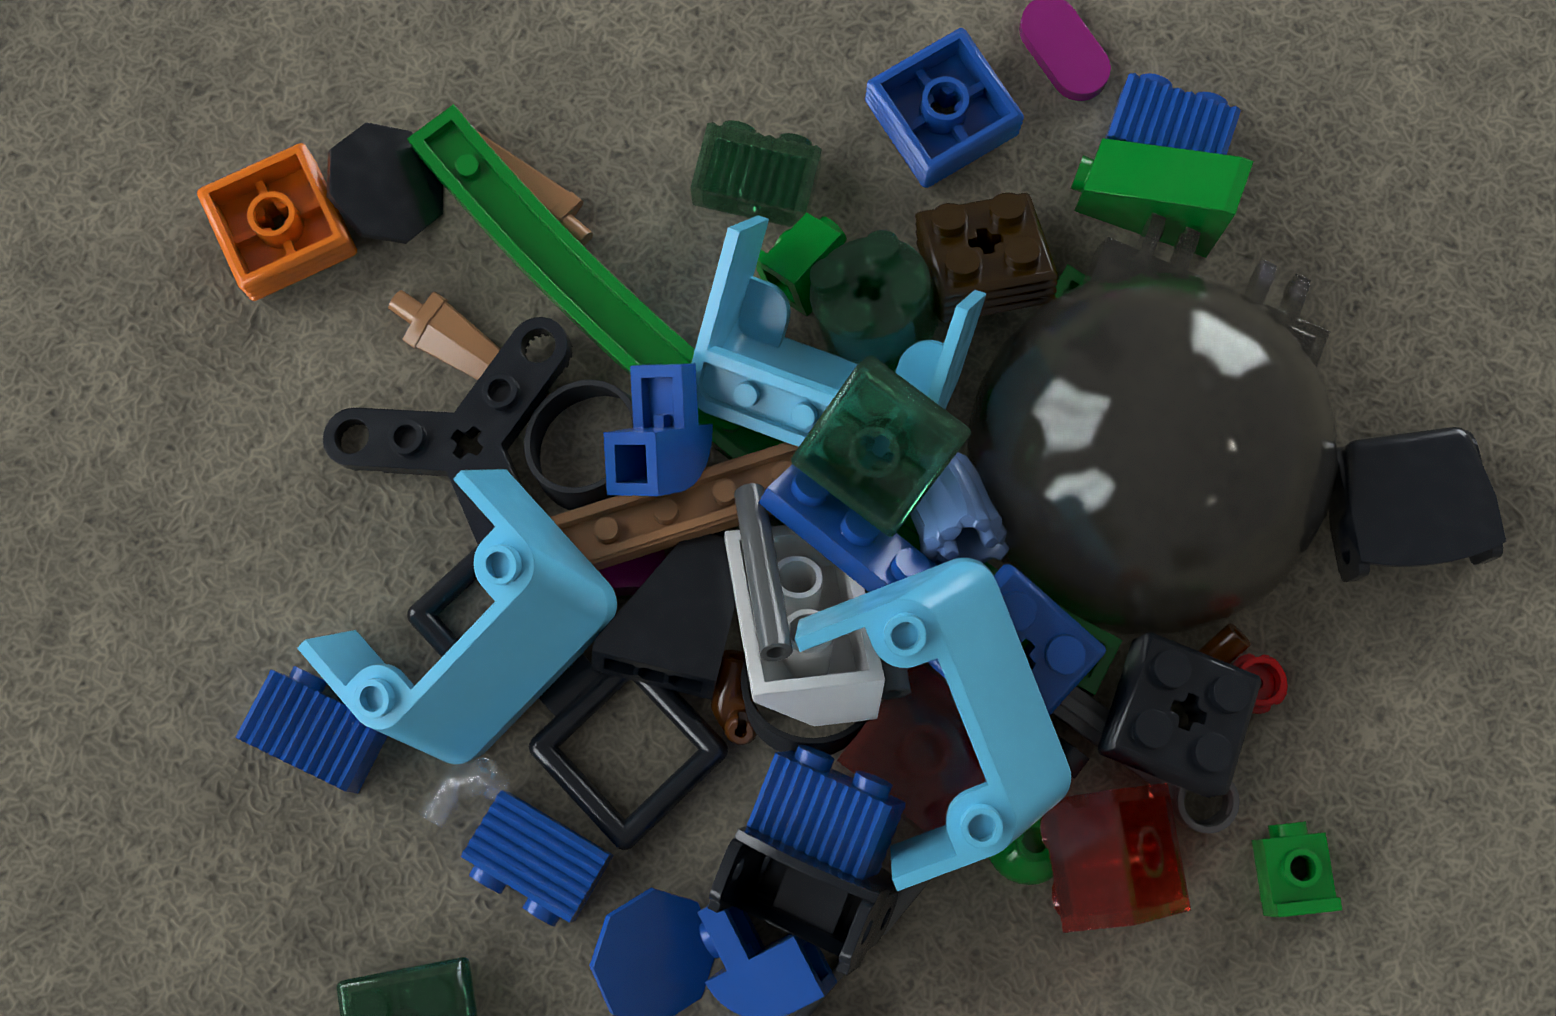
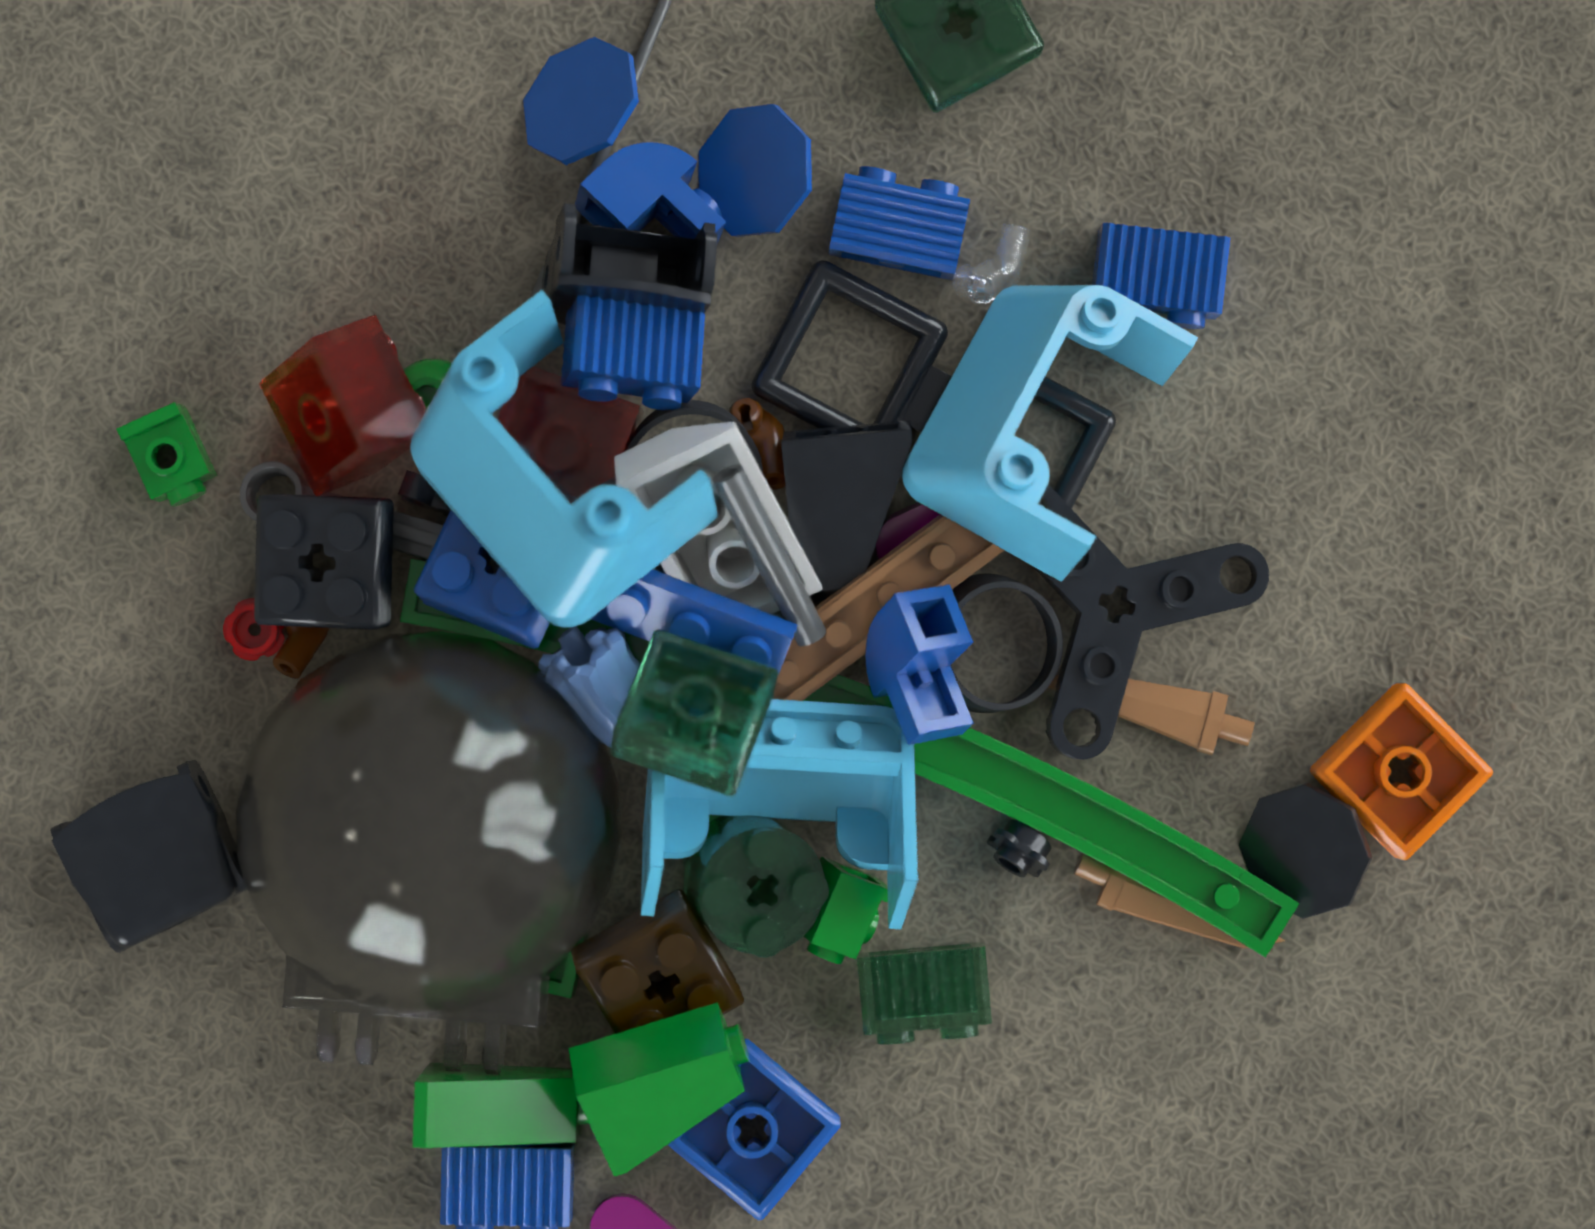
camera: 160 degrees right, 10 degrees up
(631, 264) = (1020, 849): none -> black plate
(1014, 161) = (657, 1081): none -> green slope

